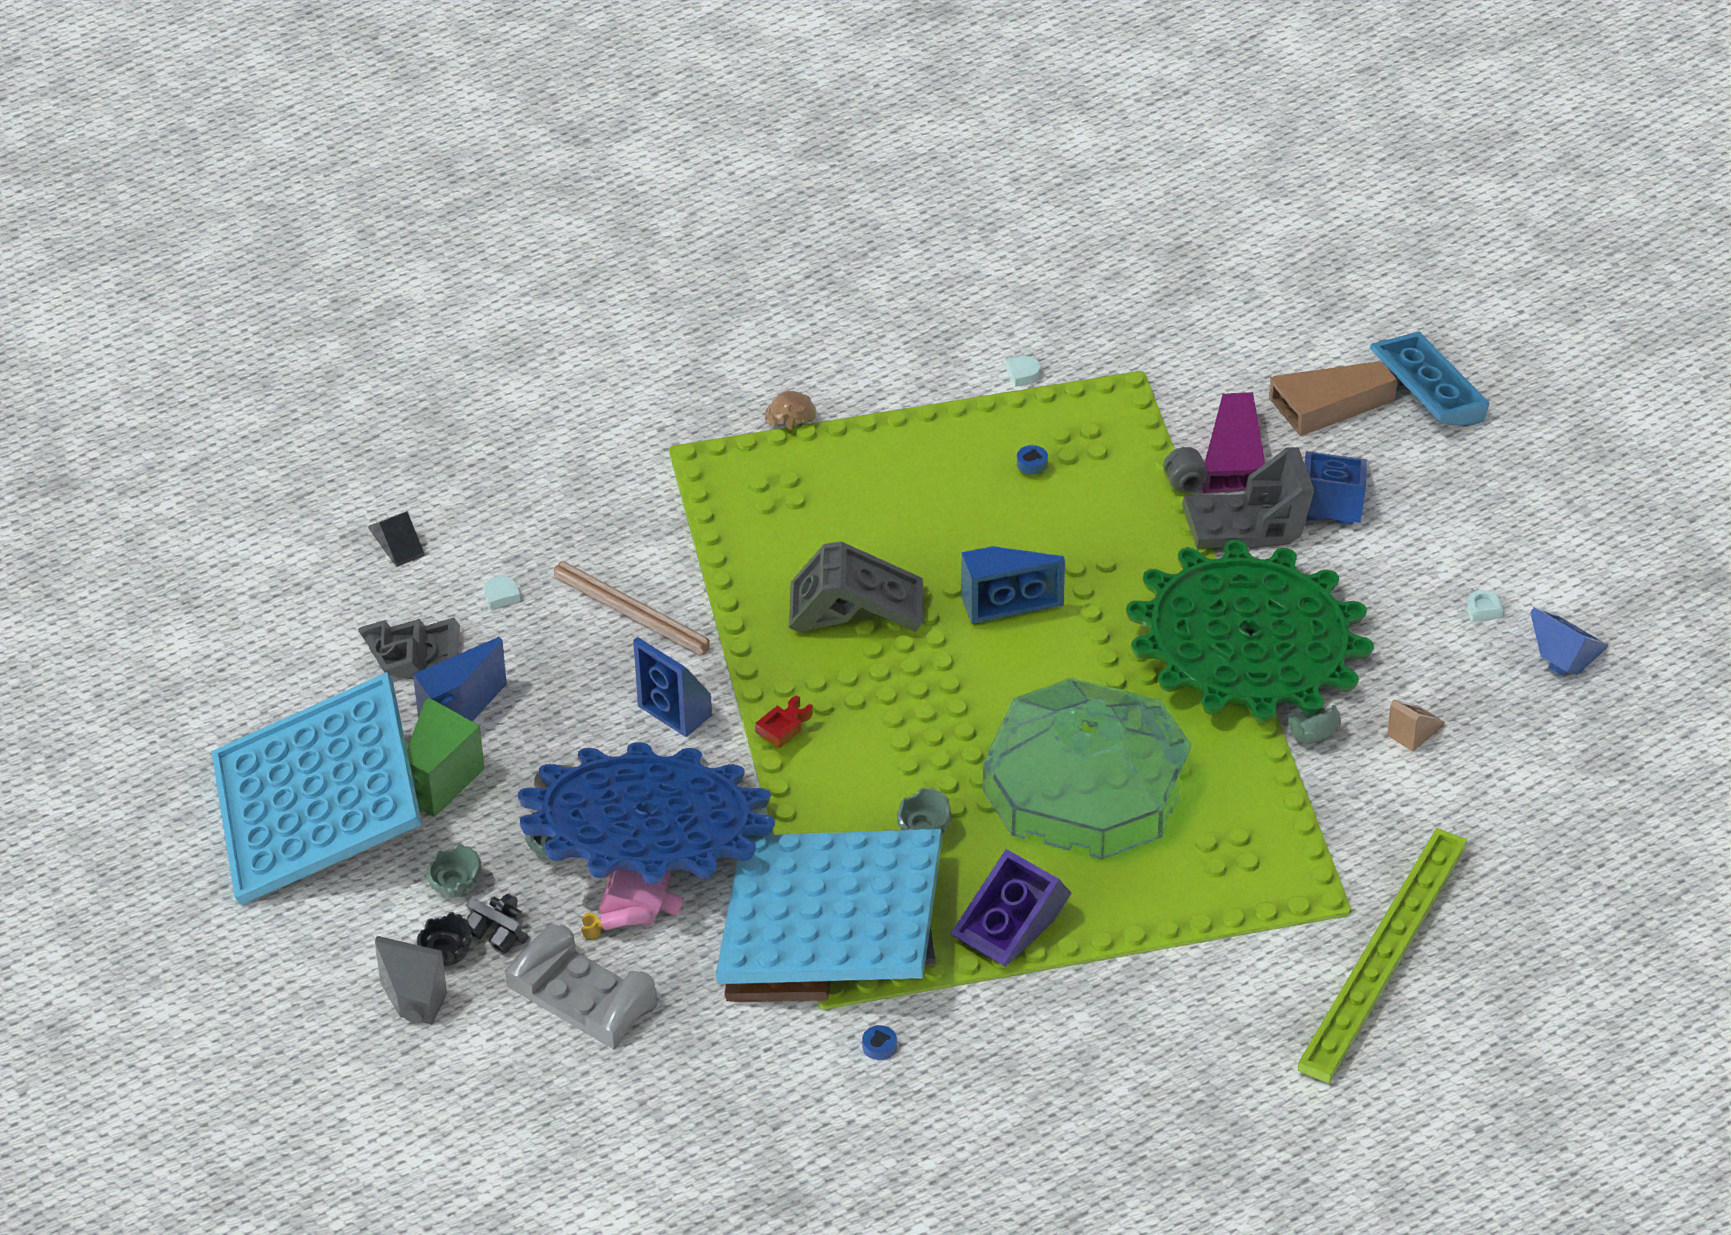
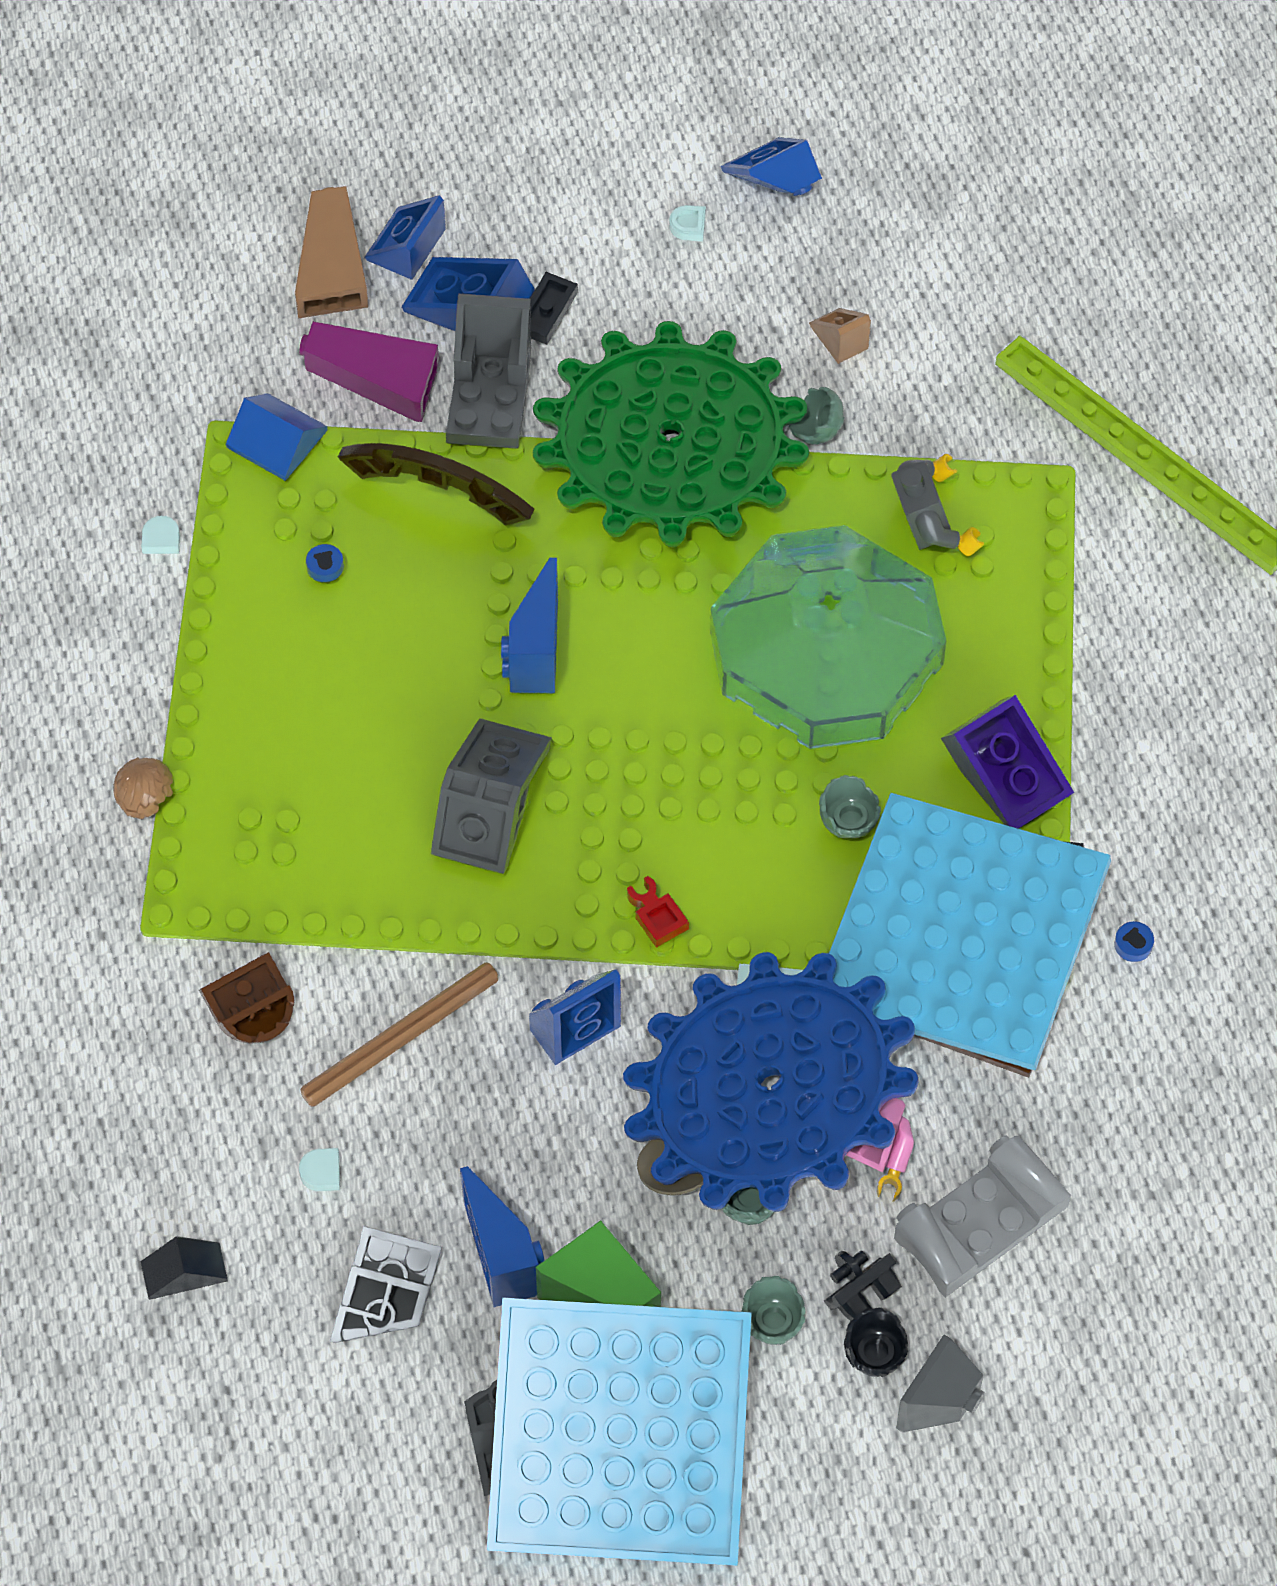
camera: 75 degrees left, 15 degrees up
(628, 516) = (251, 1001): none -> reddish brown slope
(1127, 497) = (390, 460): none -> dark brown tile
(1142, 401) = (273, 434): none -> blue slope
(1185, 470) = (405, 420): dark grey head -> none
(1245, 796) = (924, 507): none -> dark grey torso
(1346, 534) = (550, 305): none -> black plate
(1373, 440) = (409, 236): none -> blue slope
(1432, 379) = (347, 156): dark azure slope -> none

